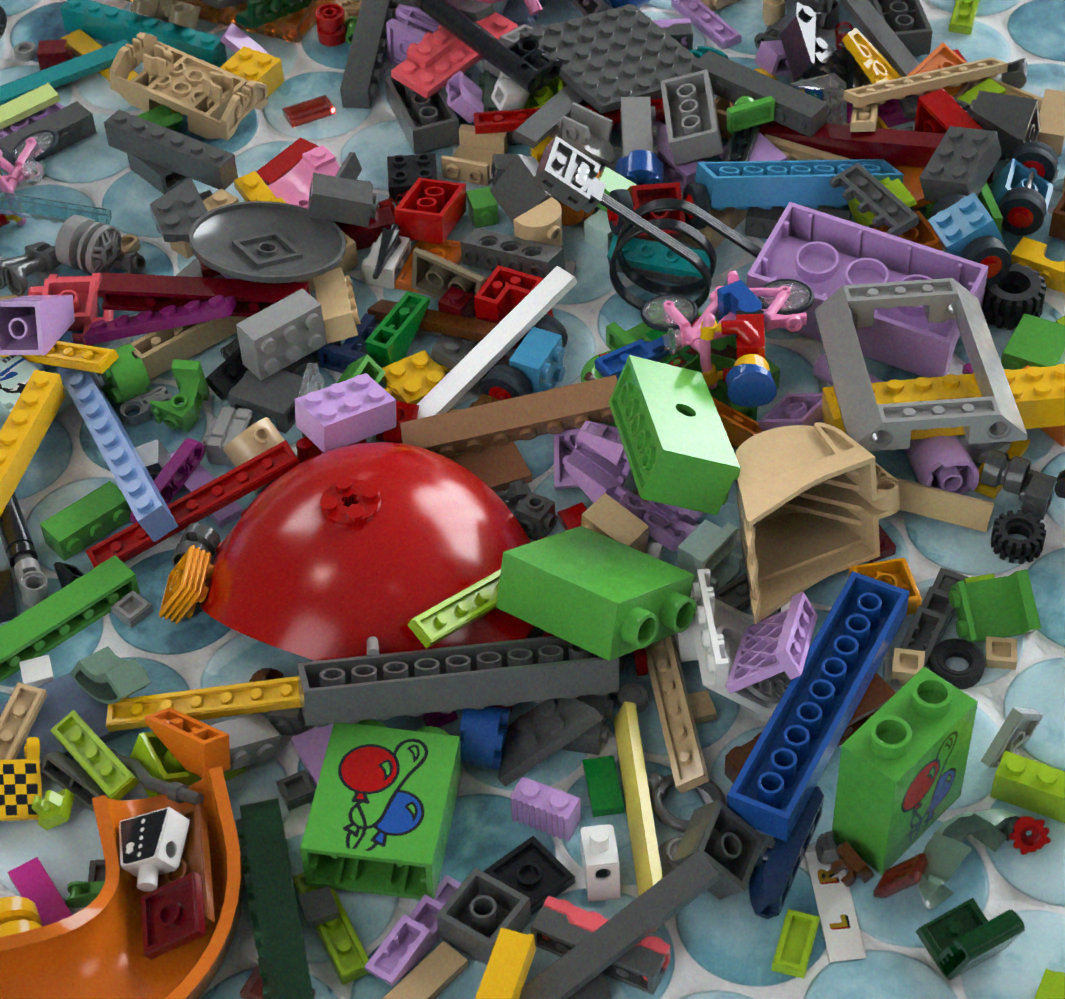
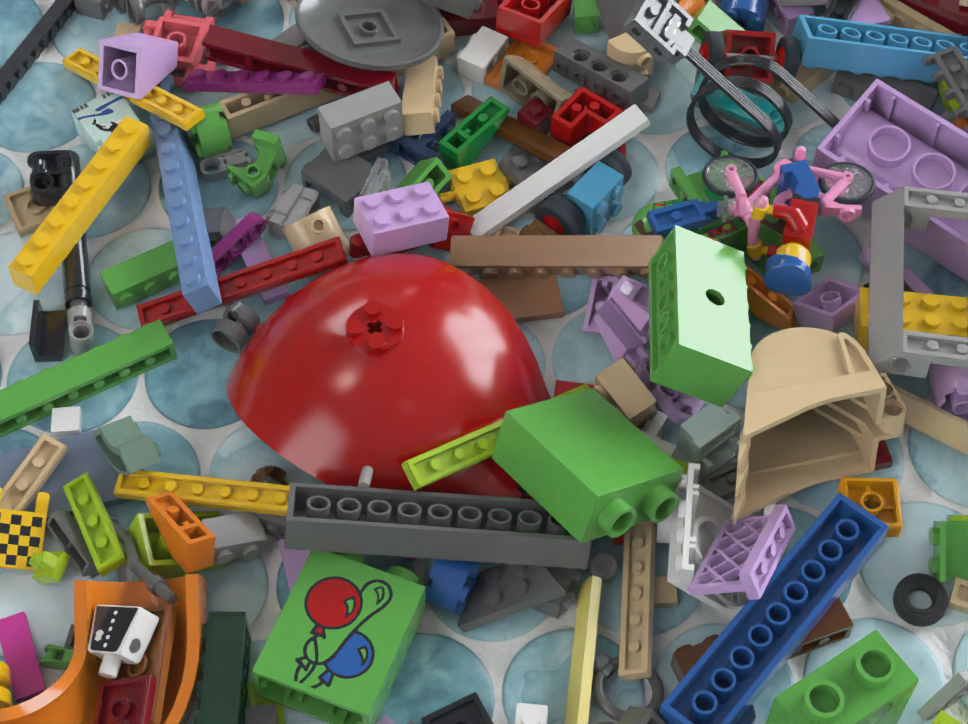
camera: 10 degrees right, 10 degrees up
(67, 573) = (116, 326): black slope -> none
(131, 263) = (246, 12): dark grey piece -> none
(132, 609) = (165, 374): light grey tile -> none
(186, 585) = (217, 364): light orange brick -> none
(227, 375) = (305, 148): black plate -> none
(296, 790) = (271, 594): dark grey tile -> none
(389, 243) = (486, 39): black piece -> none
(516, 492) = (545, 329): dark grey piece -> none
(536, 515) = (556, 358): dark grey brick -> none
(545, 808) = (493, 667): lavender brick -> none
(571, 516) = (592, 365): red tile -> none
(603, 786) = (553, 654): green tile -> none
(906, 664) = (871, 594): tan tile -> none
(932, 616) = (906, 548): dark grey slope -> none

